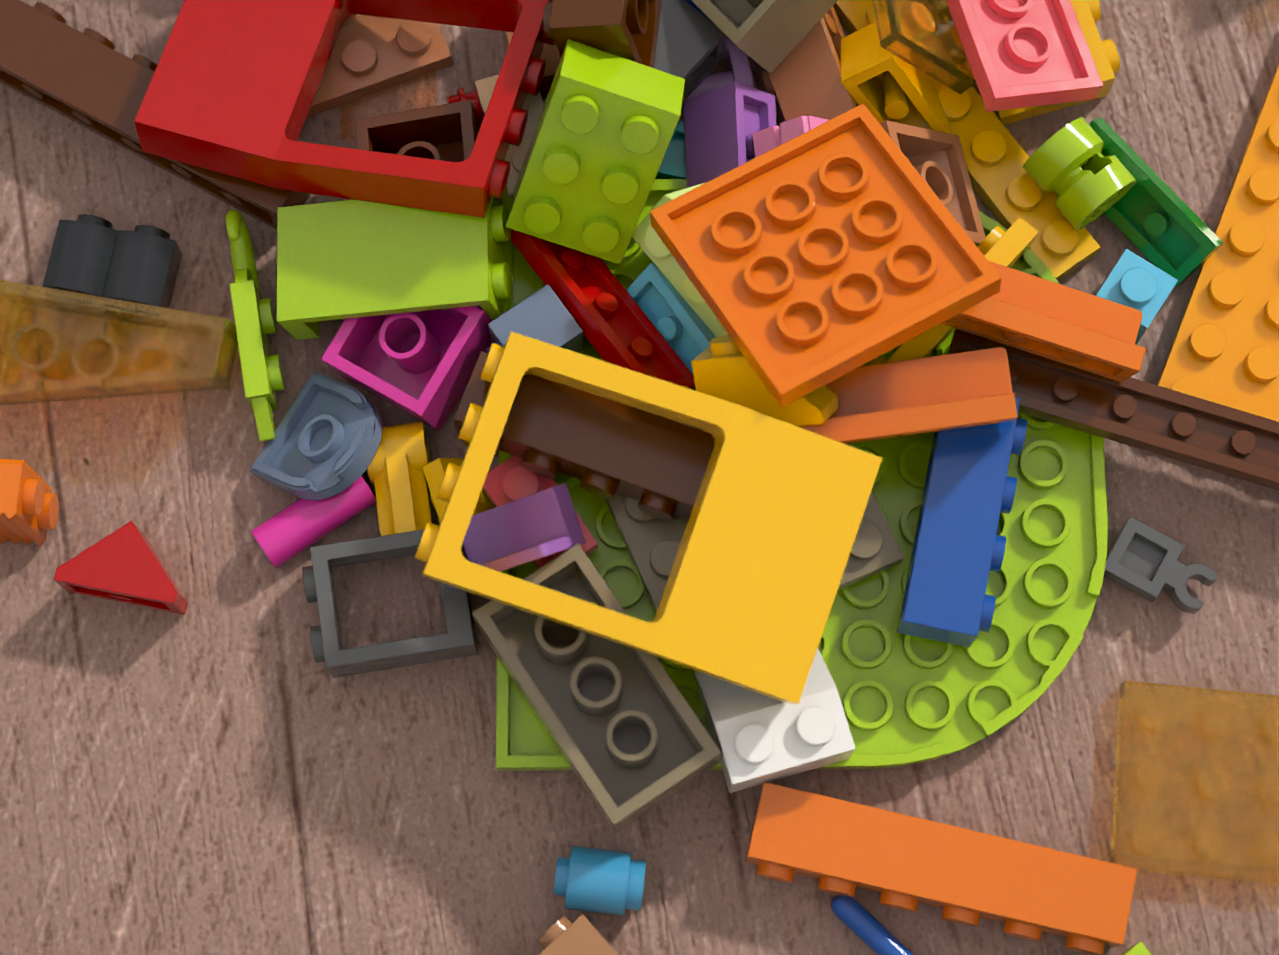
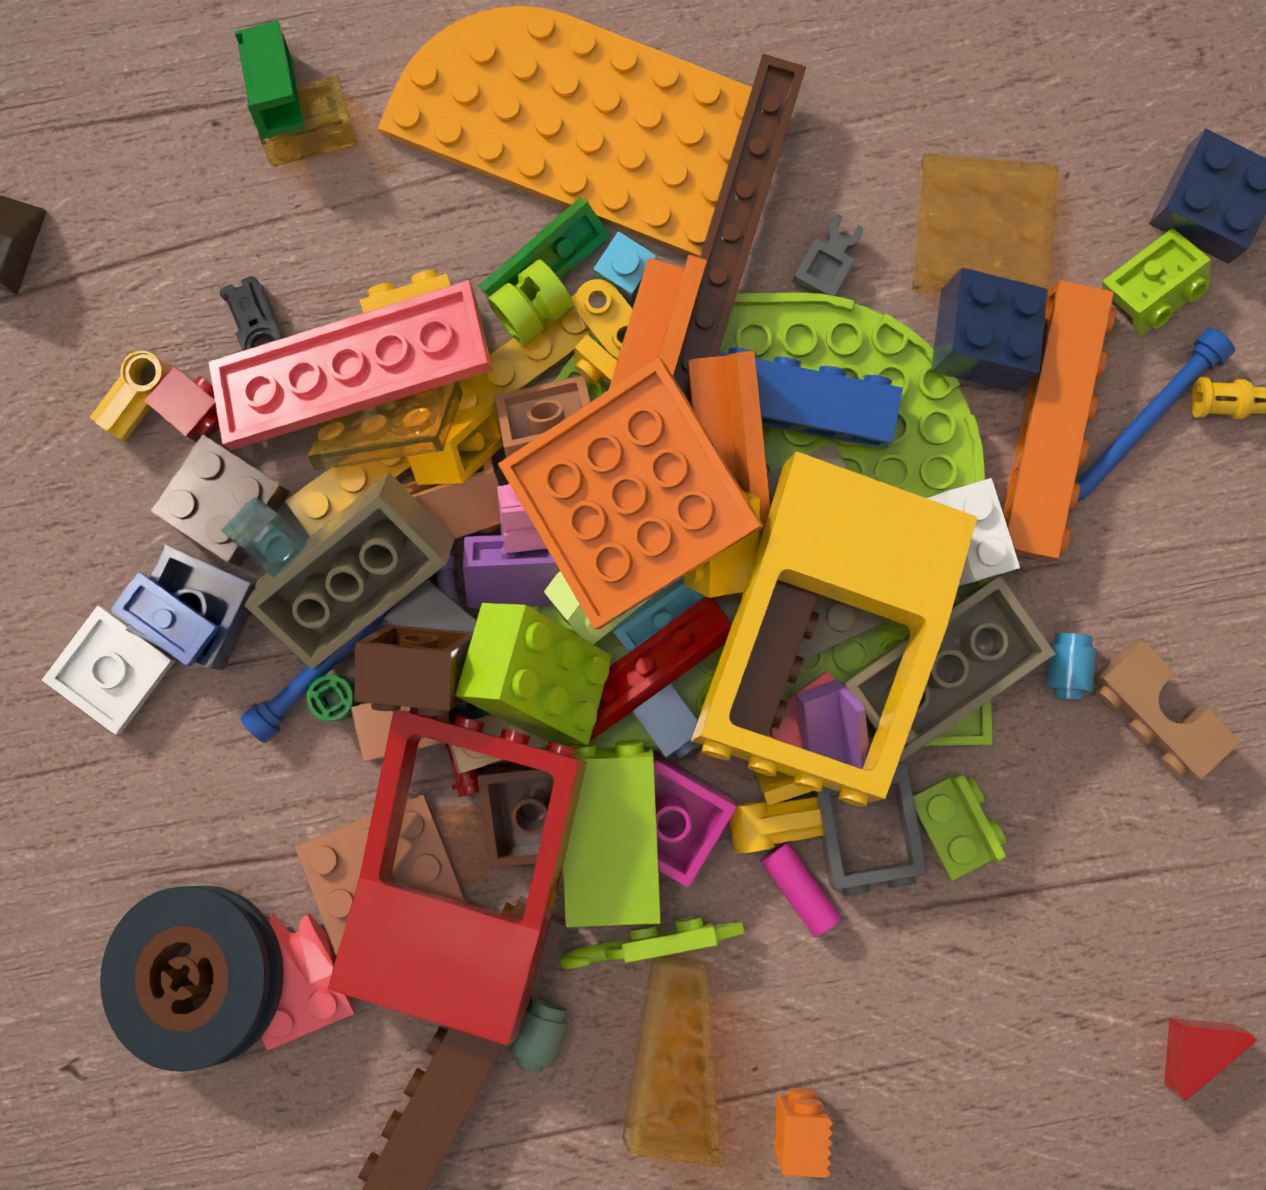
camera: 95 degrees left, 10 degrees up
(112, 262) = (605, 1057): black brick -> none
(123, 571) = (849, 1030): red slope -> none
(145, 189) = (540, 1035): none -> sand green brick
(321, 441) = (745, 884): sand blue tile -> none
(388, 723) = (957, 825): none -> lime bracket
(1060, 265) = (606, 321): none -> yellow plate
(1063, 770) = (989, 330): none -> dark blue brick

